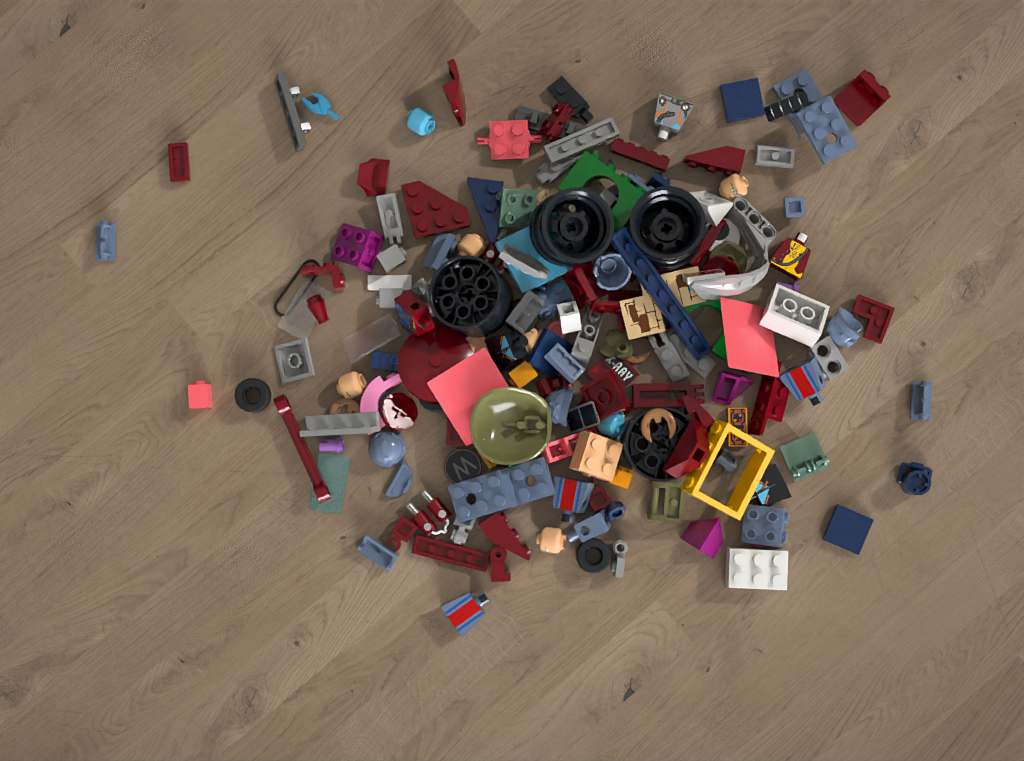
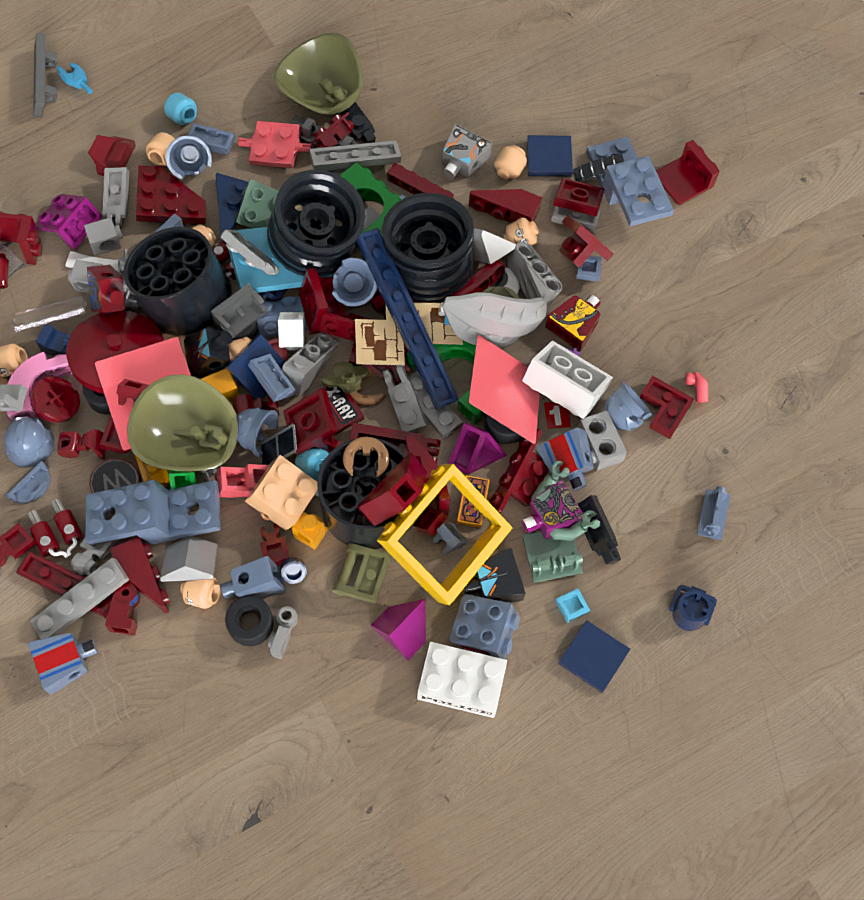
camera: 10 degrees right, 20 degrees down
(416, 165) = (157, 148): none -> light nougat head
(423, 444) = (71, 443): none -> dark red leg
(442, 169) = (188, 156): none -> sand blue helmet
(453, 144) = (217, 140): none -> sand blue plate
(455, 93) = (226, 86): dark red slope -> none
(463, 401) = (129, 389): none -> dark red tile
(466, 566) = (80, 599): none -> light grey plate
(533, 66) = (321, 74): none -> olive piece
(537, 520) = (189, 560): none -> light grey slope
(571, 496) = (240, 538): torso -> none
(711, 117) = (510, 162): none -> light nougat head
(775, 139) = (579, 196): none -> dark red tile
(786, 190) = (581, 243): none -> dark red bracket
(787, 344) = (556, 415): none -> red sticker
(803, 426) = (556, 511): none -> torso
(825, 493) = (572, 605): none -> medium azure tile
(835, 432) = (601, 538): none -> black hinge
(897, 292) = (700, 384): none -> coral arm

